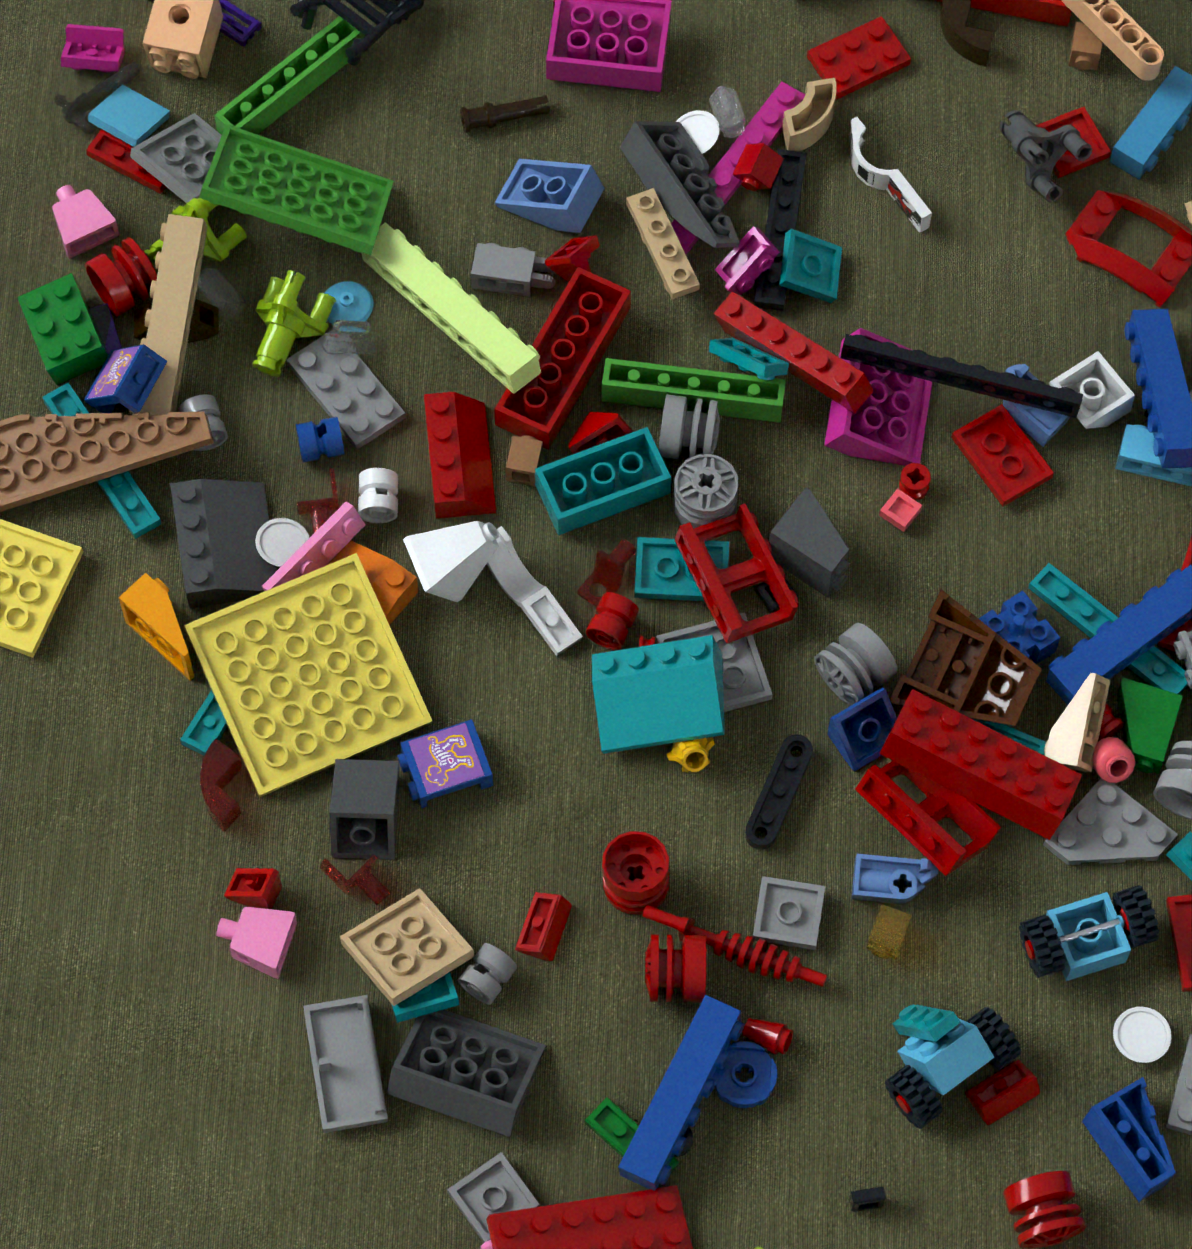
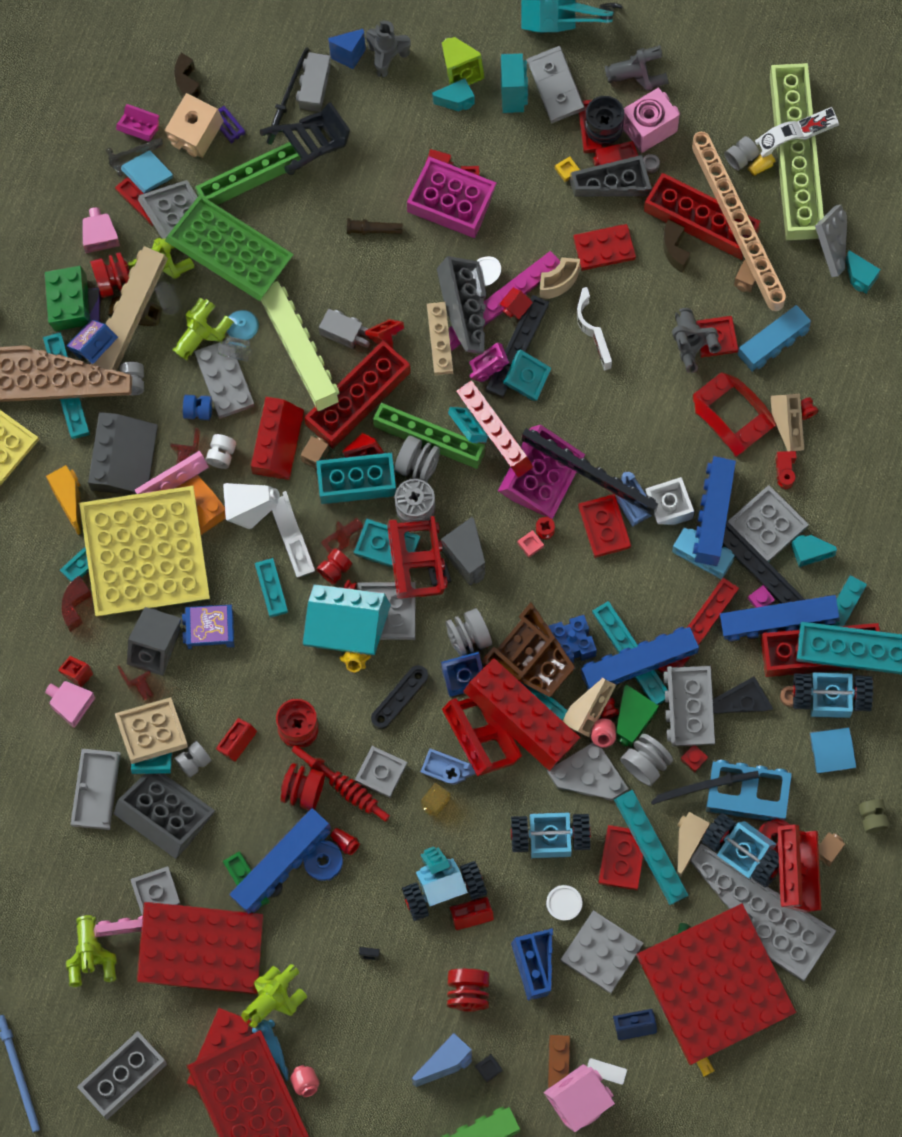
camera: 20 degrees right, 5 degrees up
(280, 540) = (155, 463): white piece -> none
(523, 679) = (271, 587): none -> teal plate
(552, 193) = (385, 287): medium blue slope -> none
(727, 111) = (509, 262): clear piece -> none

